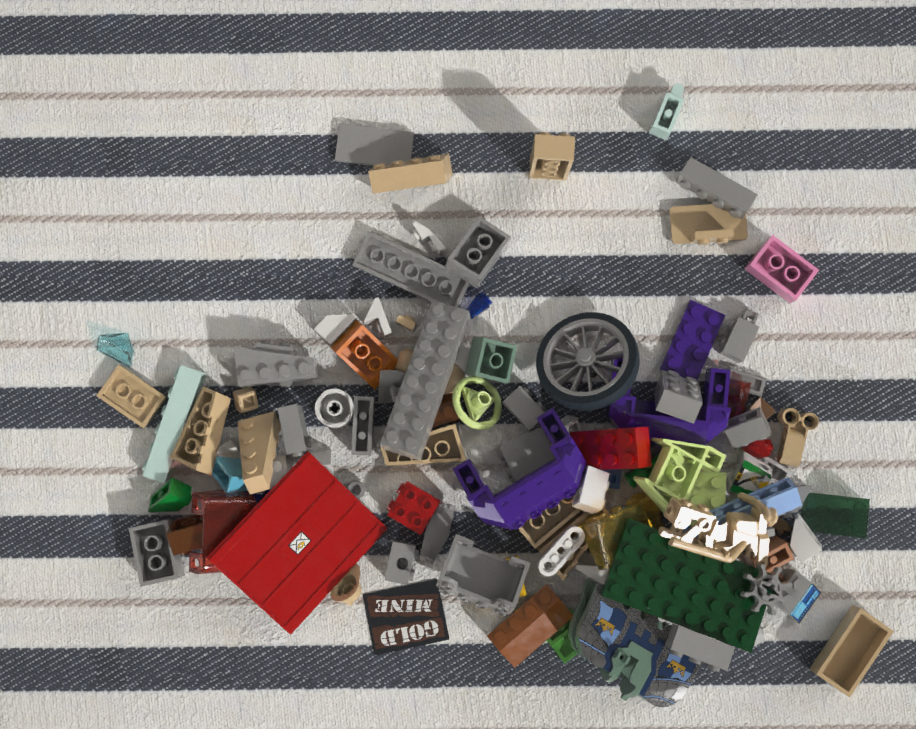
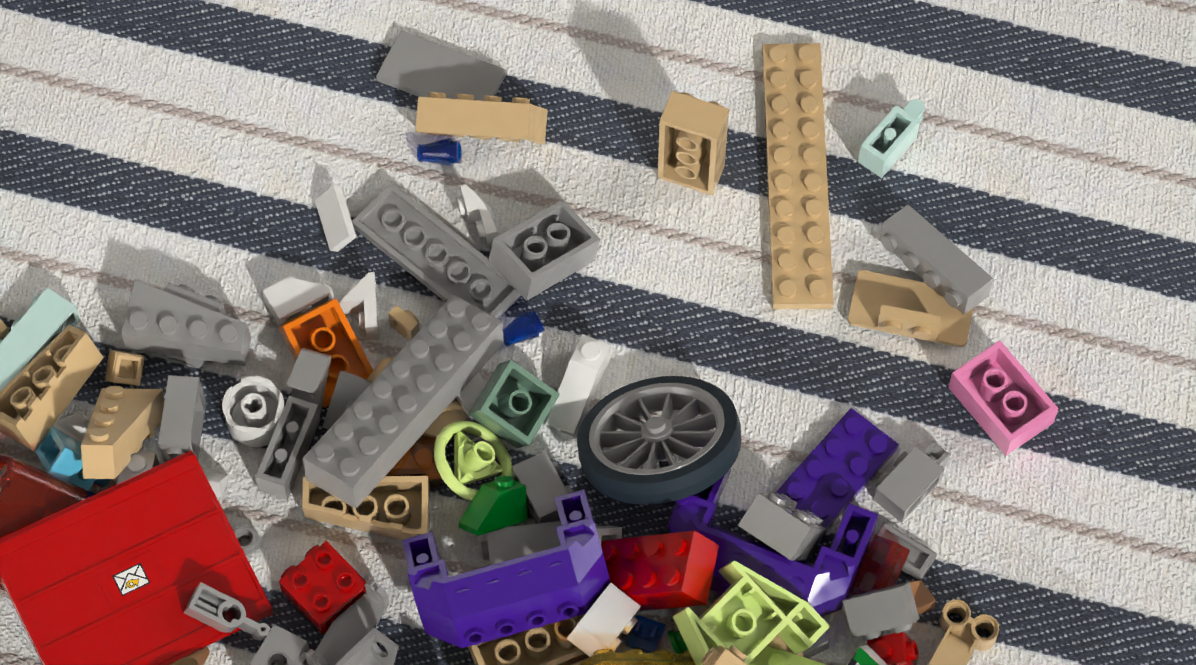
camera: 15 degrees right, 20 degrees down
(341, 264) = (335, 218): none -> white tile
(352, 544) = (209, 604): none -> light grey piece
(362, 379) = (310, 376): none -> light grey slope
(391, 201) = (441, 152): none -> clear blue cone
(500, 430) = (495, 507): none -> green slope
(524, 332) = (579, 384): none -> white slope
(614, 152) = (797, 177): none -> tan plate

